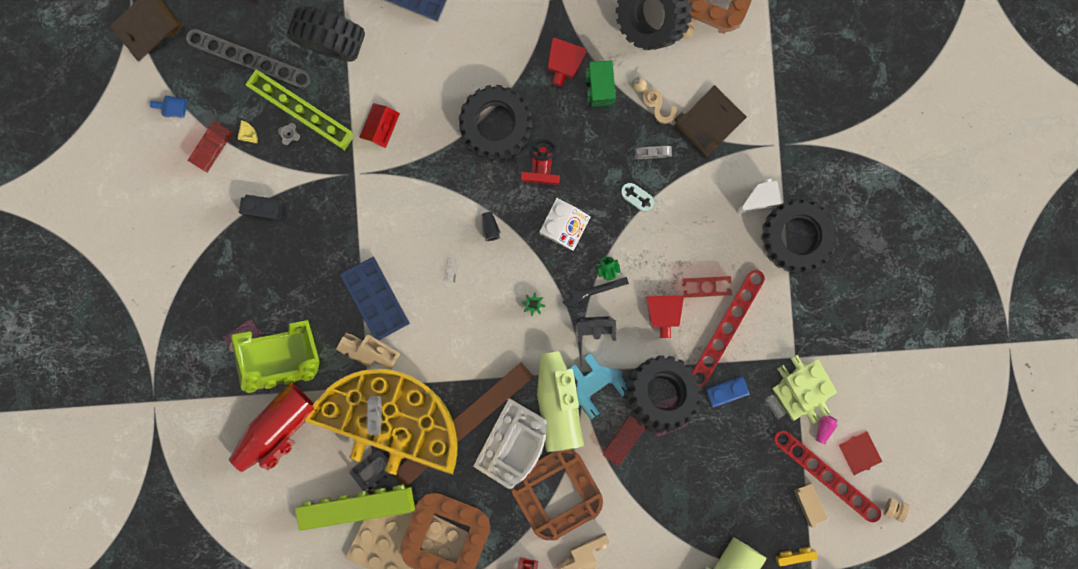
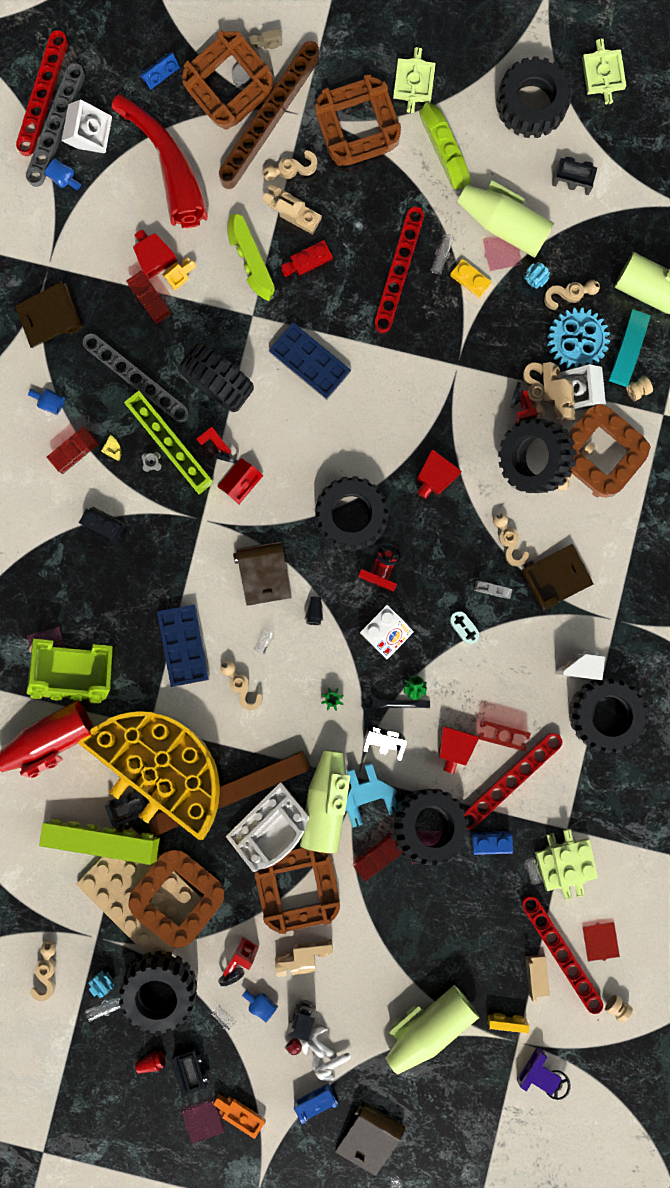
camera: 15 degrees right, 0 degrees up
(356, 101) = (224, 453): none -> red piece
(368, 350) = (160, 693): tan plate -> none
(374, 415) = (145, 760): light grey piece -> none
(429, 203) = (263, 570): none -> dark brown door
(441, 318) = (240, 684): none -> tan piece
(602, 84) = (465, 508): green brick -> none
(825, 428) = (575, 908): dark pink cone -> none

